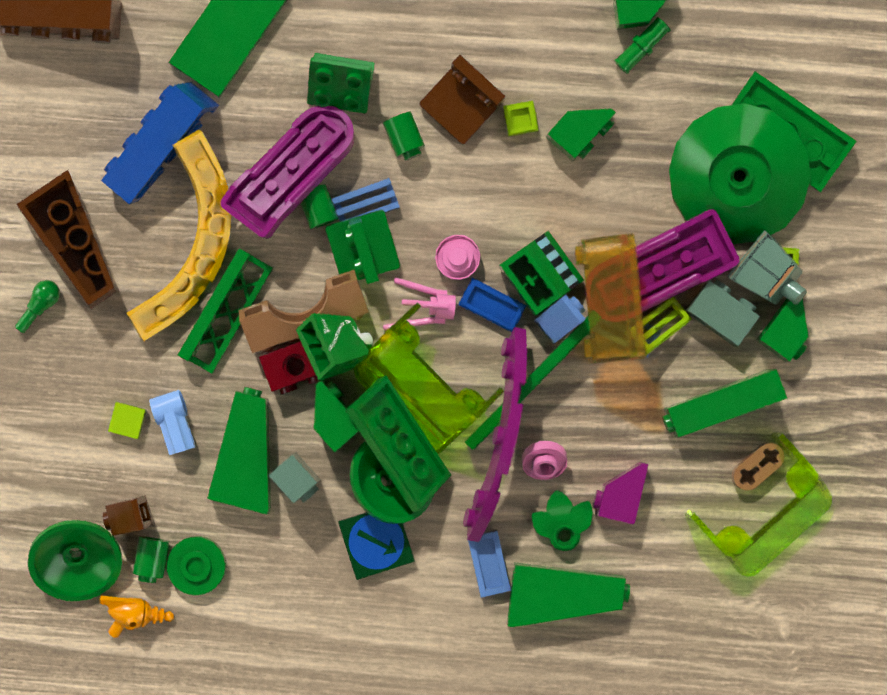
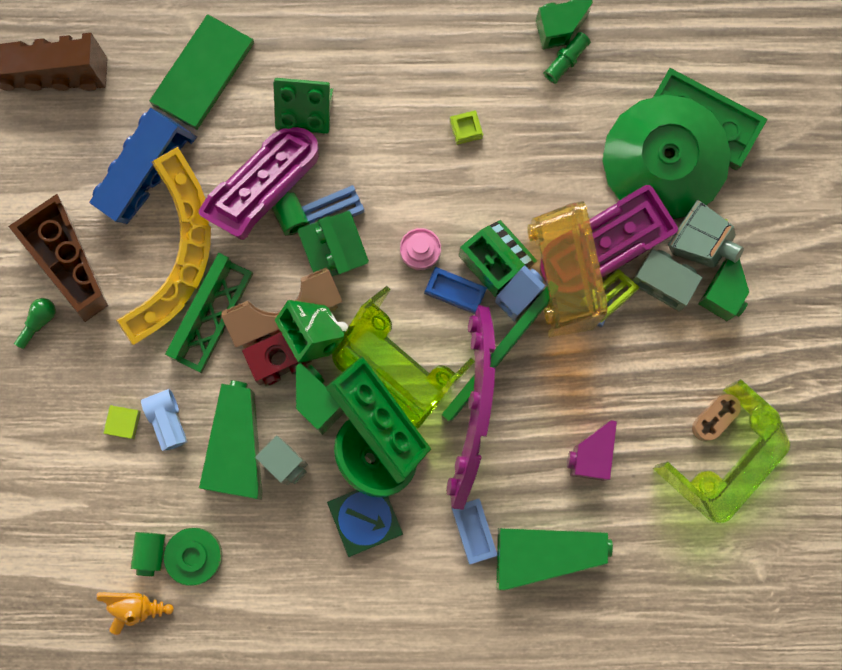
camera: 10 degrees left, 10 degrees down
(71, 573) = (69, 574): green dish -> none
(127, 516) = (123, 511): reddish brown slope -> none
(404, 135) = (363, 146): green brick -> none
(441, 306) = (407, 291): bright pink plant -> none
(462, 100) = (414, 111): reddish brown bracket -> none
(544, 460) = (517, 426): bright pink plate -> none
(561, 516) = (539, 480): green plate -> none
(577, 130) = (518, 130): green slope -> none
(724, 403) = (681, 358): green slope -> none

